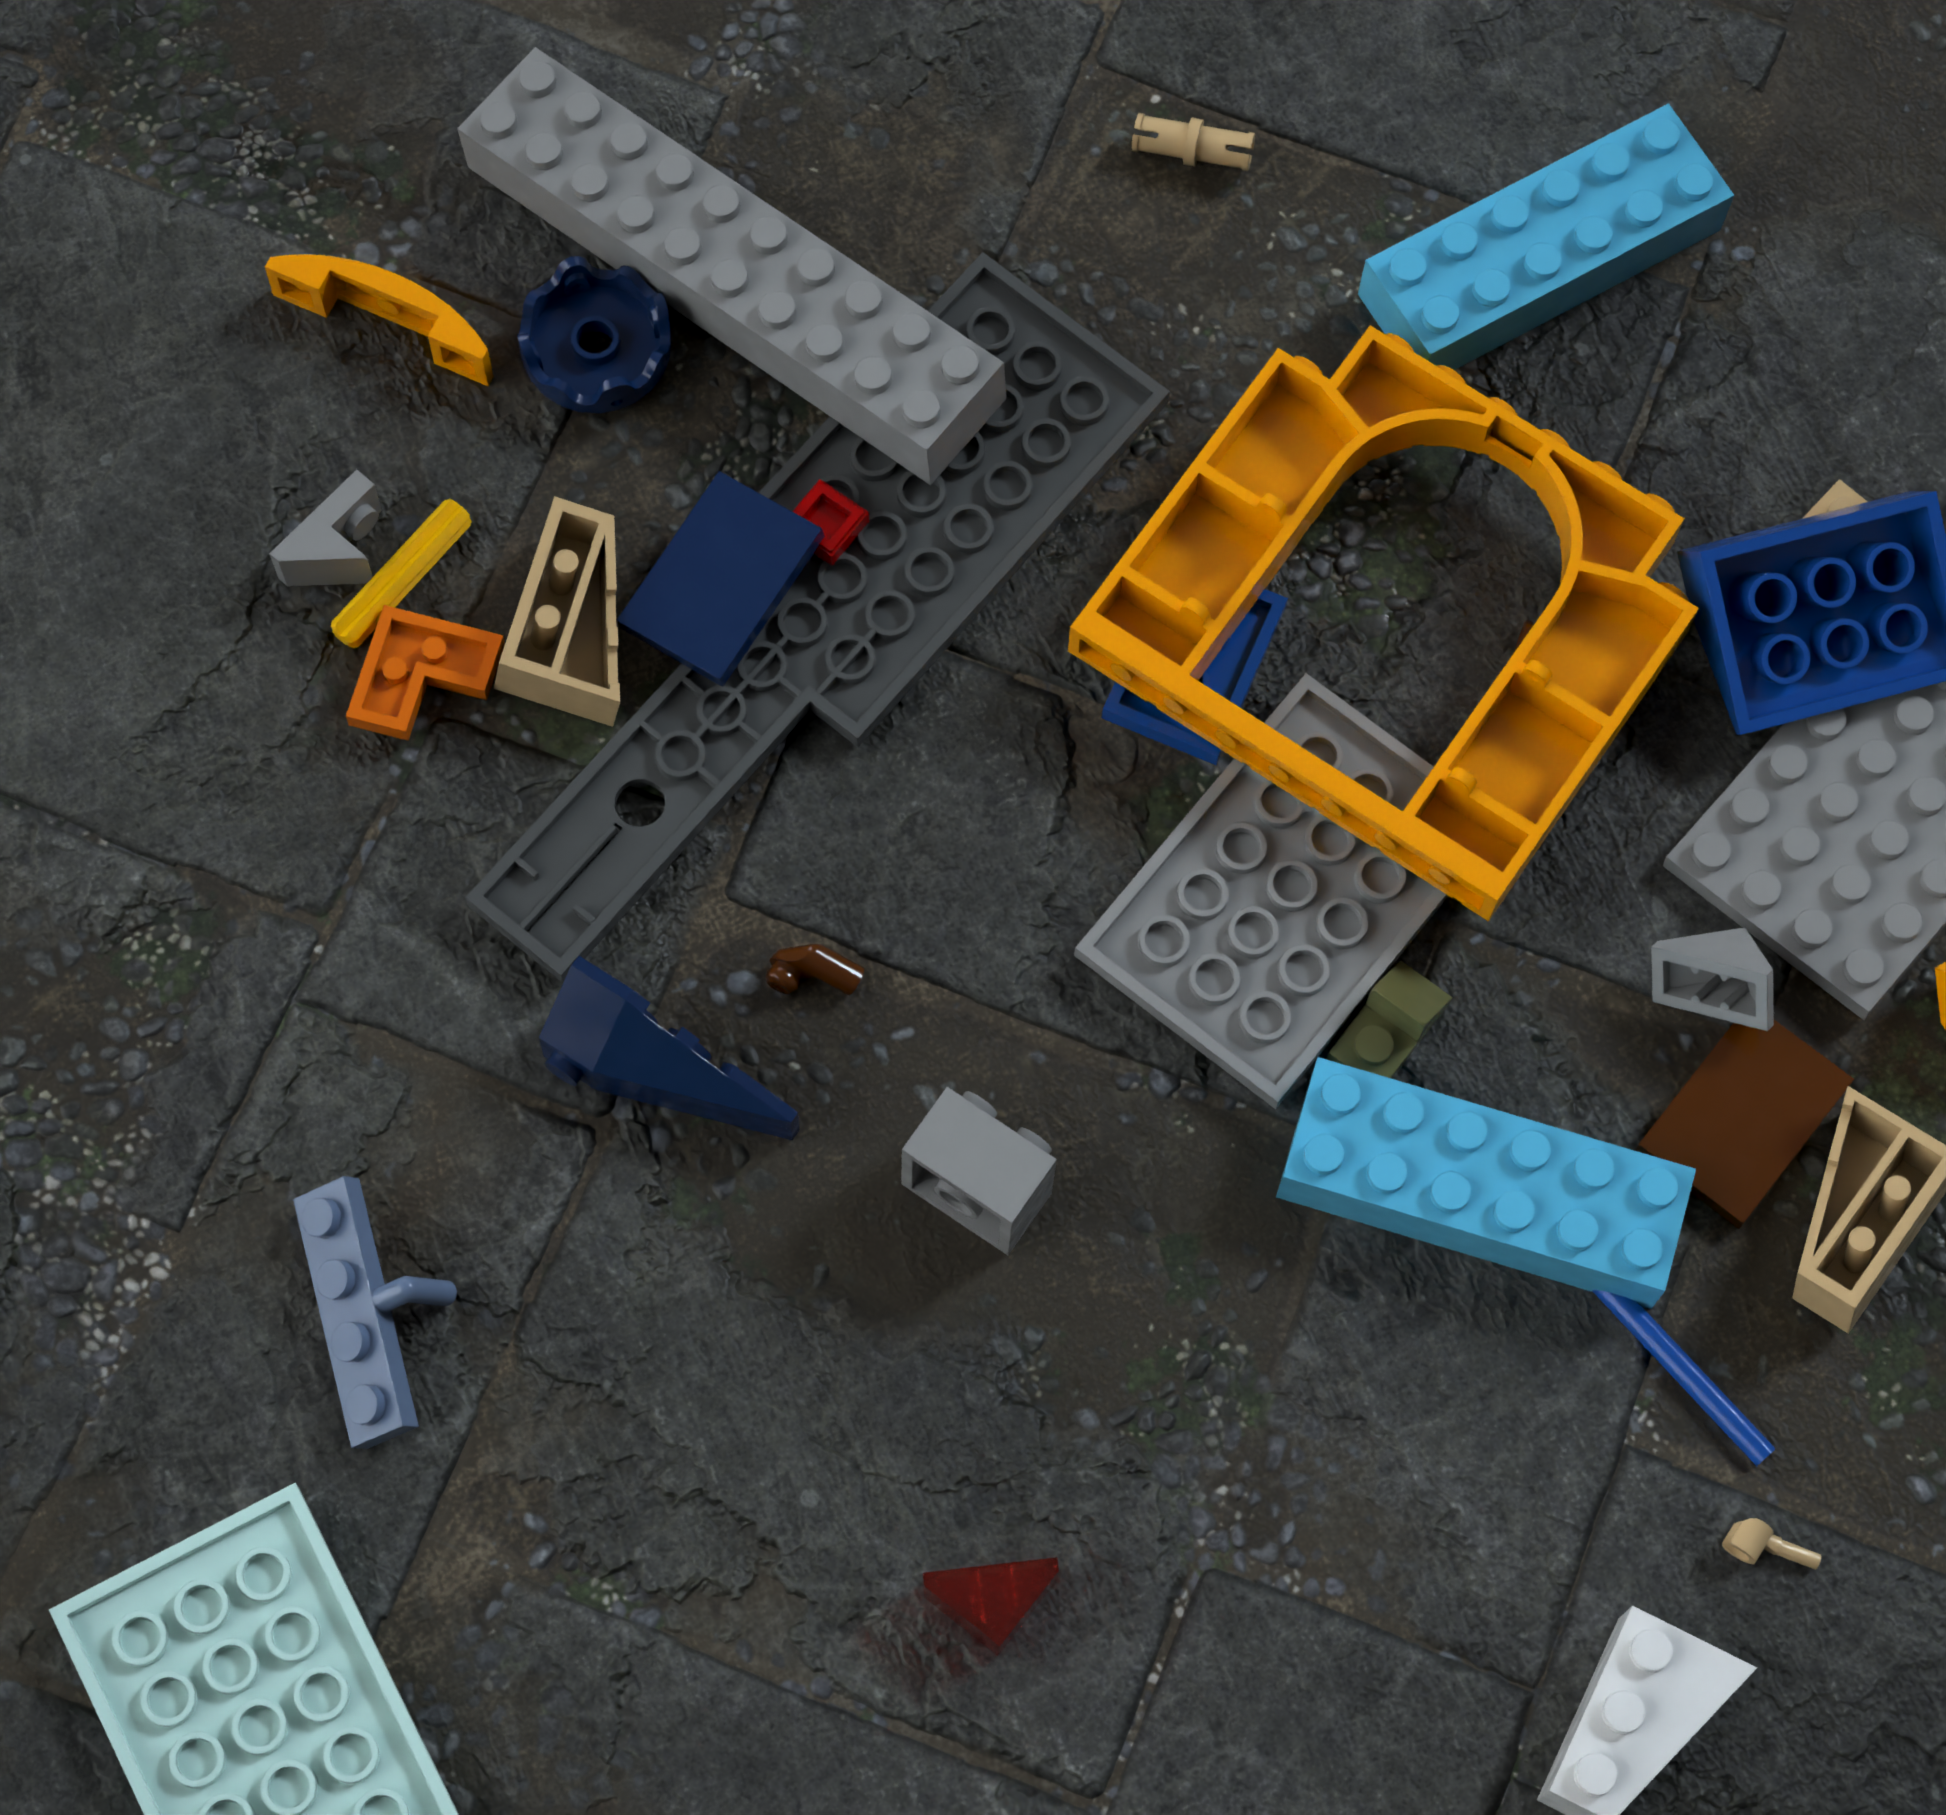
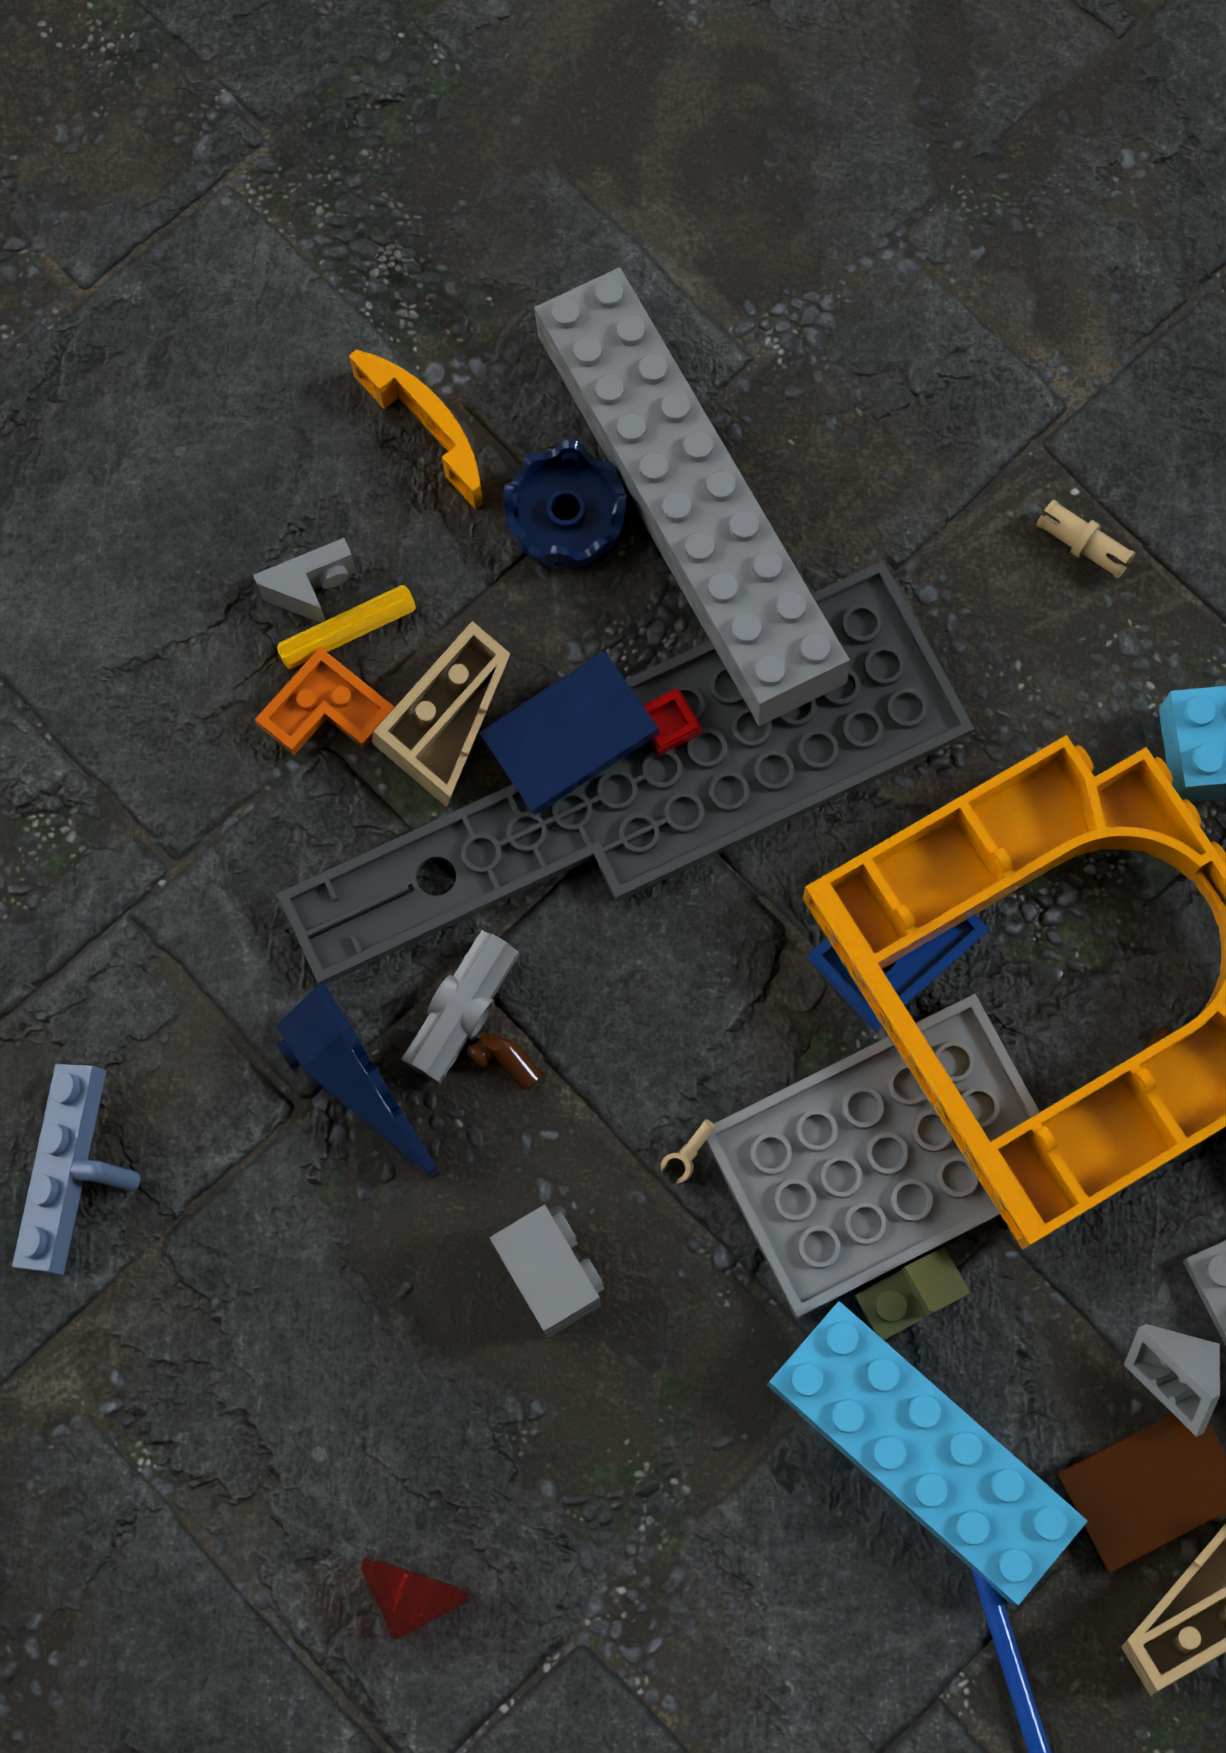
camera: 30 degrees right, 5 degrees up
(737, 933) = (460, 1007): none -> light grey piece
(1072, 976) = (690, 1150): none -> tan hand

